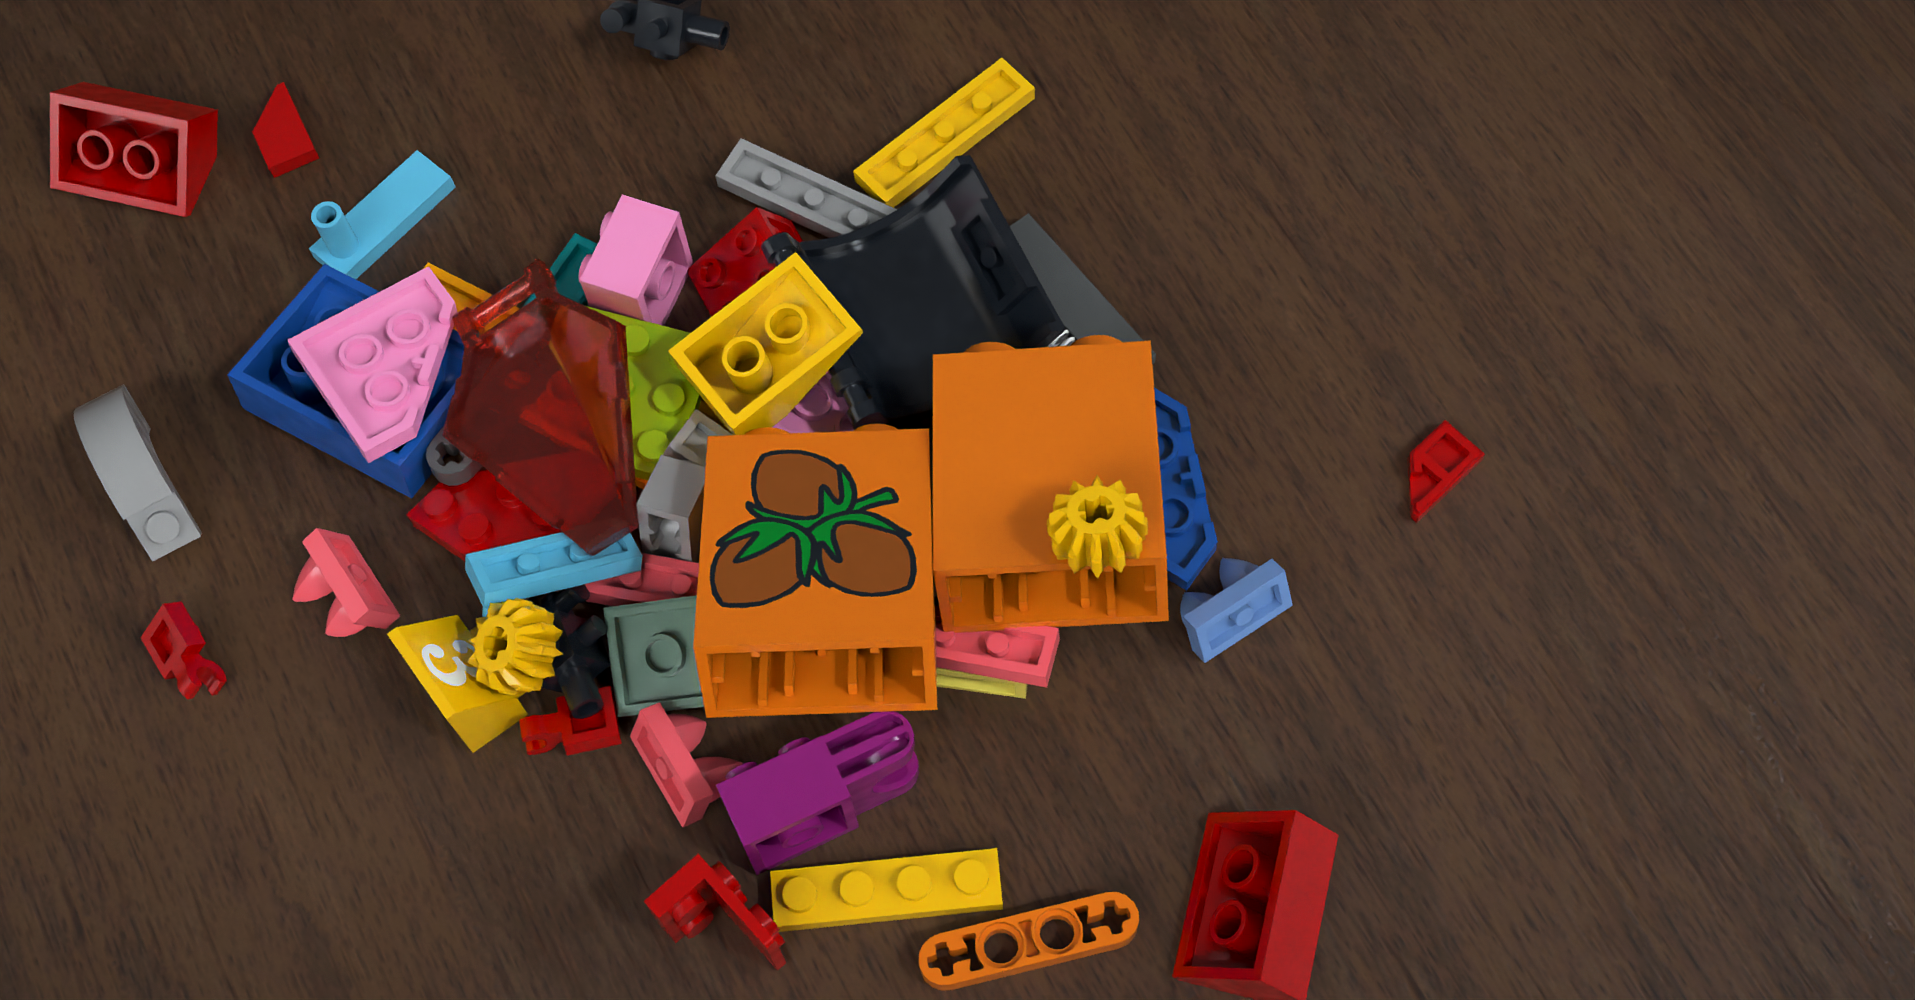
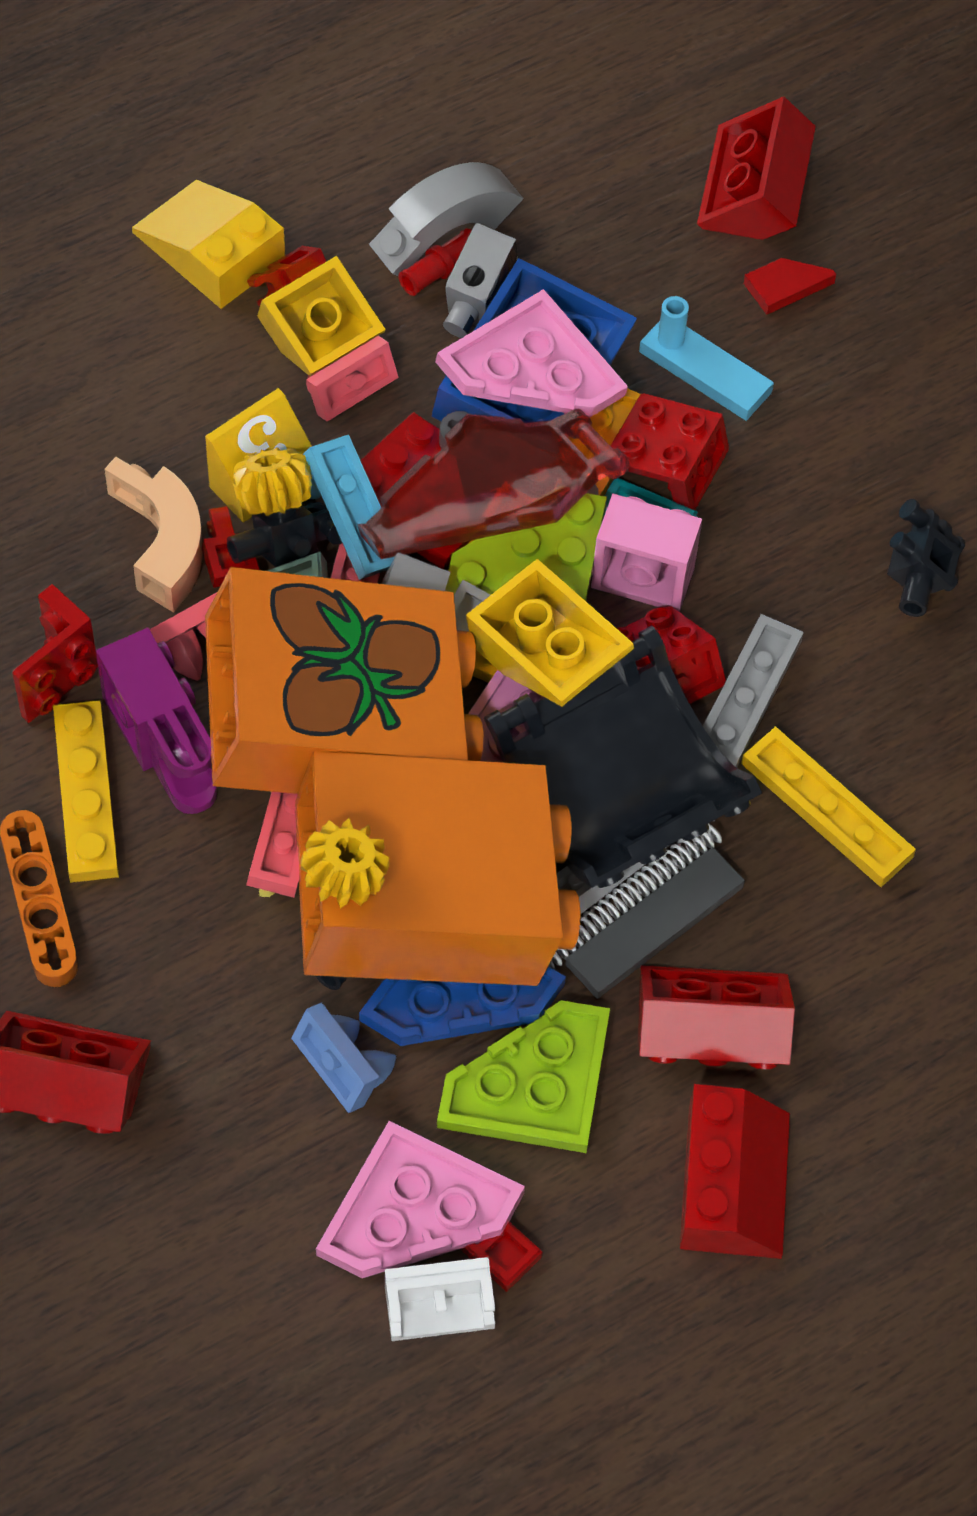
camera: 80 degrees right, 5 degrees down
(108, 744) = (213, 239): none -> yellow slope
(195, 482) = (434, 265): none -> red pin
(240, 428) = (477, 277): none -> light grey torso
(264, 609) = (319, 317): none -> yellow slope
(490, 245) = (674, 445): none -> red bracket
(536, 780) = (176, 555): none -> light nougat arch
(1183, 246) = (715, 1016): none -> slope
(1258, 419) = (533, 1082): none -> lime plate
(1357, 247) = (734, 1173): none -> red slope
(1403, 537) = (415, 1205): none -> bright pink plate
(1503, 516) = (439, 1299): none -> white hinge

